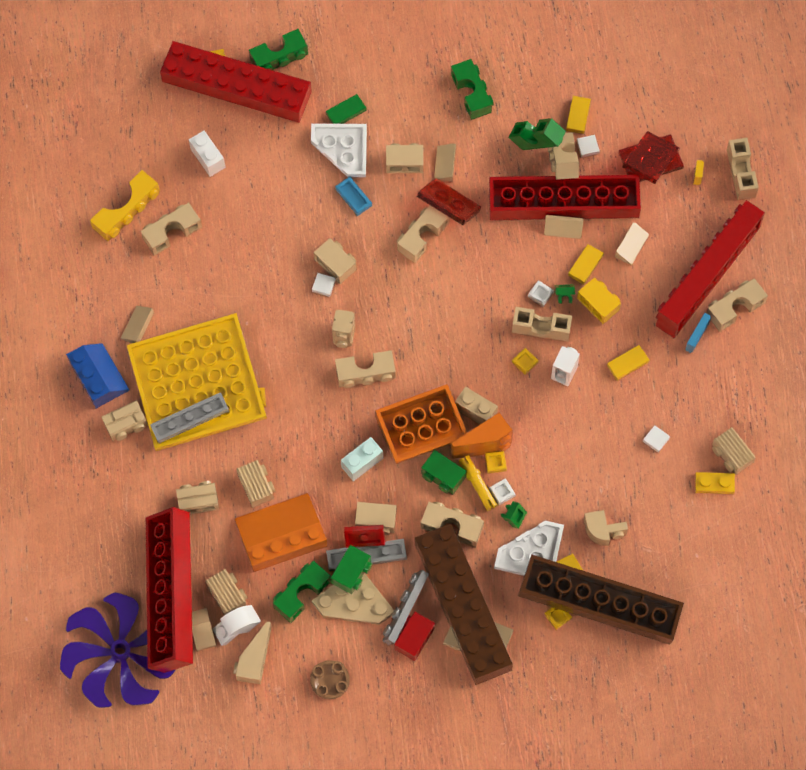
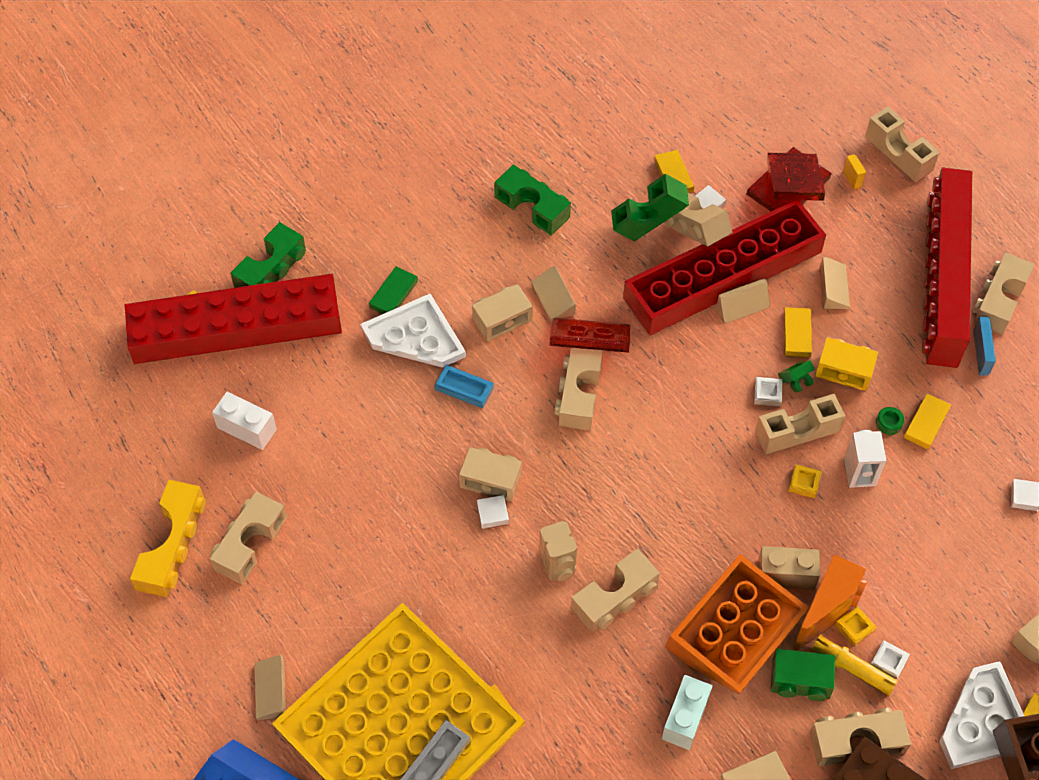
camera: 30 degrees left, 10 degrees down
(515, 514) = (929, 681): green tile -> none
(604, 350) = (890, 420): none -> green tile

